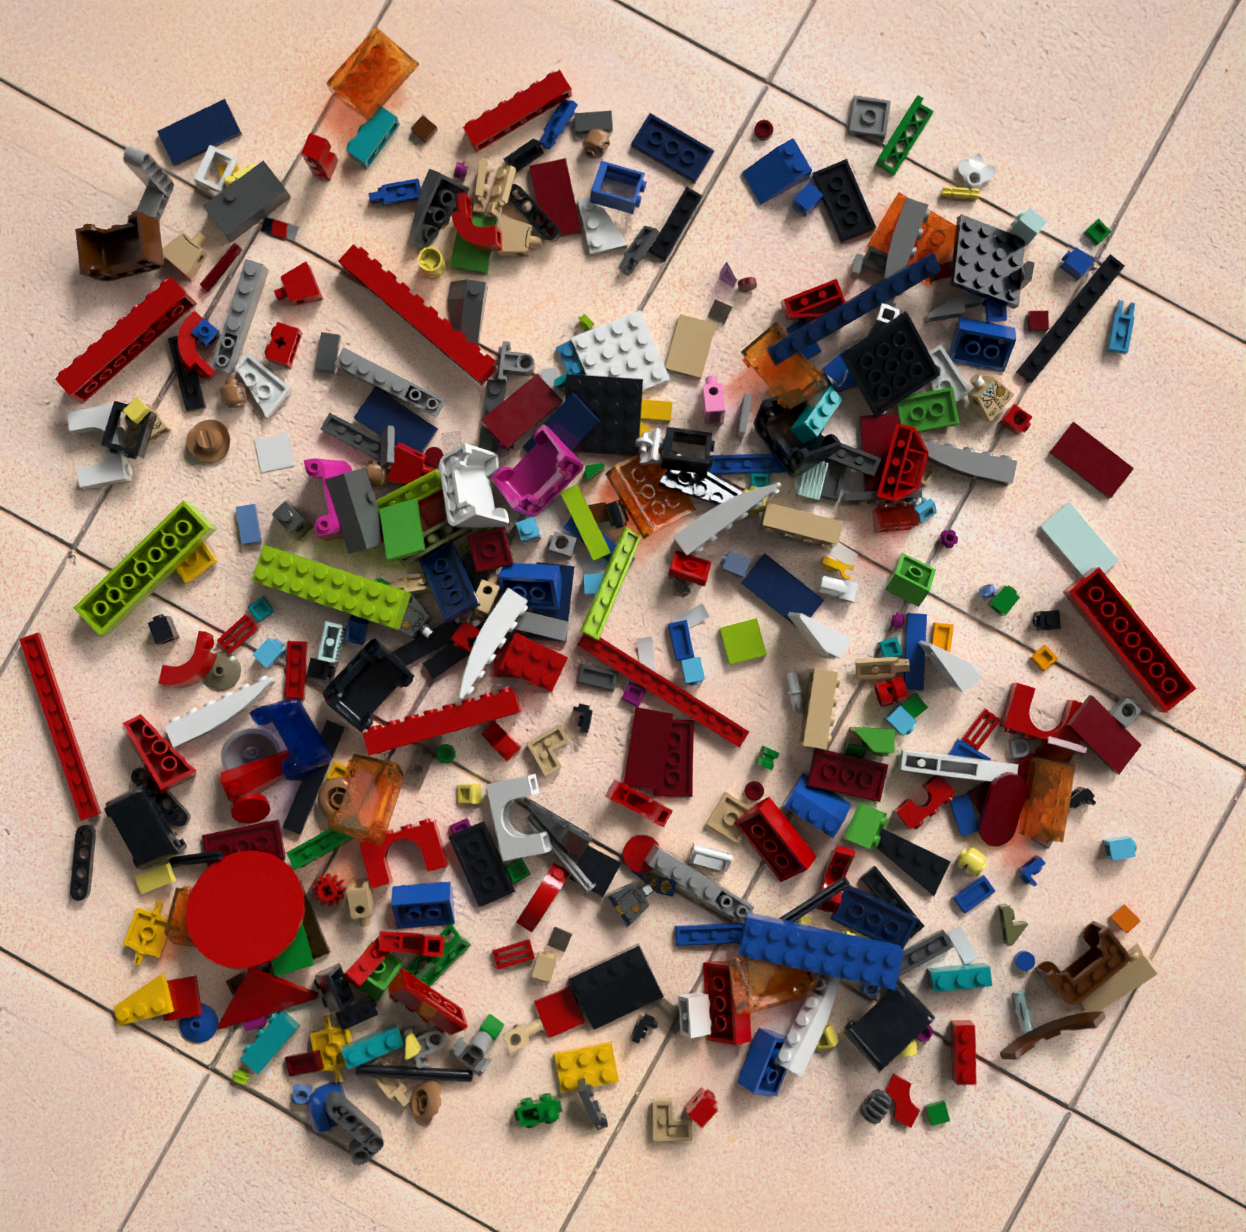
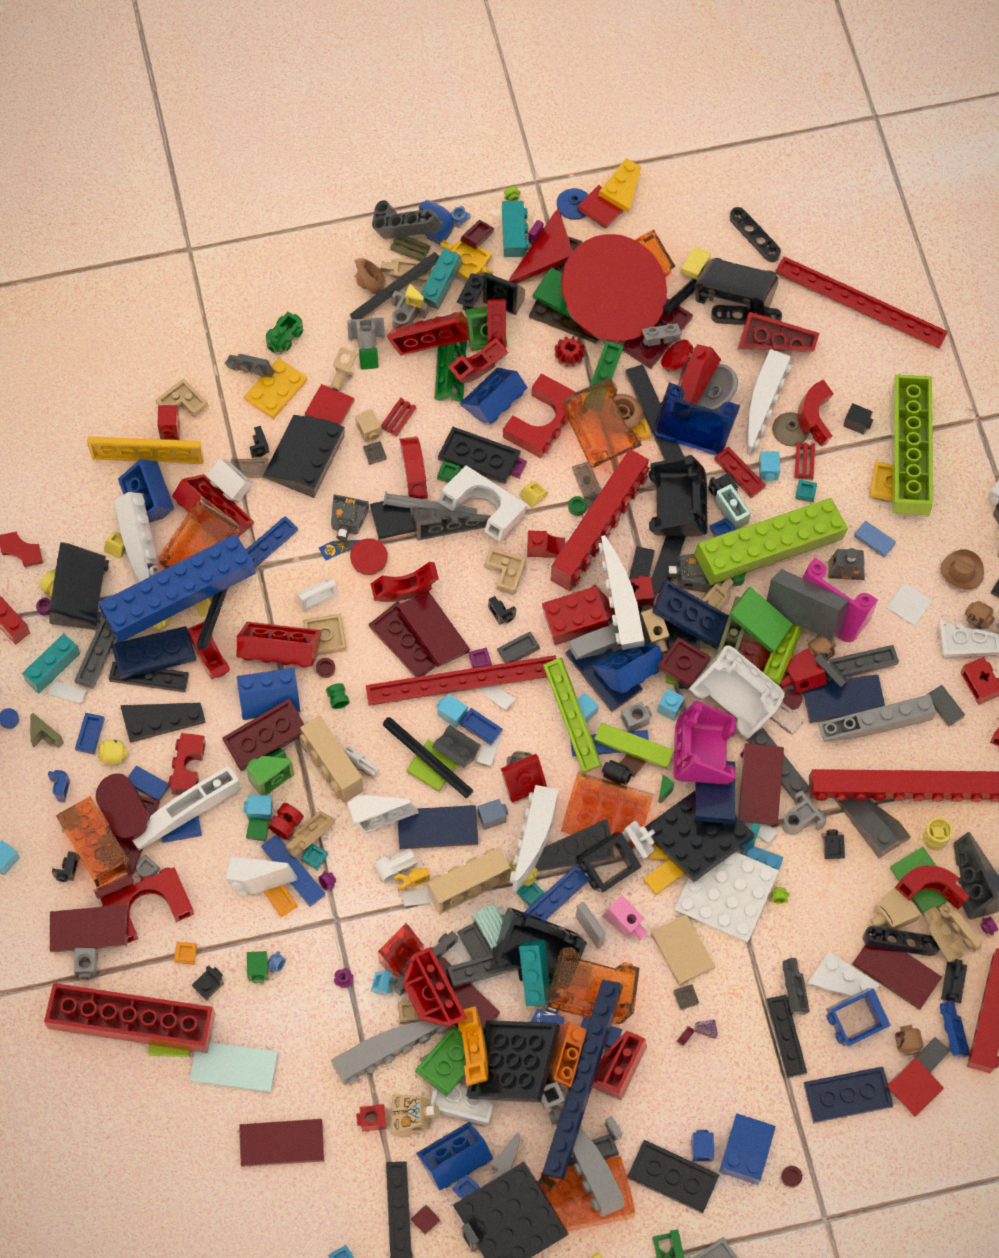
camera: 135 degrees right, 20 degrees down
(147, 932) = (667, 226): yellow plate -> none
(241, 836) = (669, 333): none -> light grey hinge
(361, 900) = (541, 360): tan torso -> none
(367, 1082) = (412, 245): none -> olive tile
(511, 324) = (833, 844): none -> black bracket
(623, 109) = (915, 1087): none -> red tile
(698, 883) = (310, 567): light grey slope -> none
(716, 638) = (457, 746): none -> dark grey bracket
(740, 1100) = (150, 449): none -> yellow tile
(744, 649) = (426, 756): none -> black axle
(849, 335) = (567, 1053): none -> orange slope
(866, 826) = (219, 706): bright green slope -> none
(876, 1106) = (38, 525): dark grey gear -> none
(907, 399) = (474, 1047): none -> light orange slope
(910, 579) = (346, 919): bright green slope -> none
(990, 716) = (189, 840): red tile -> none

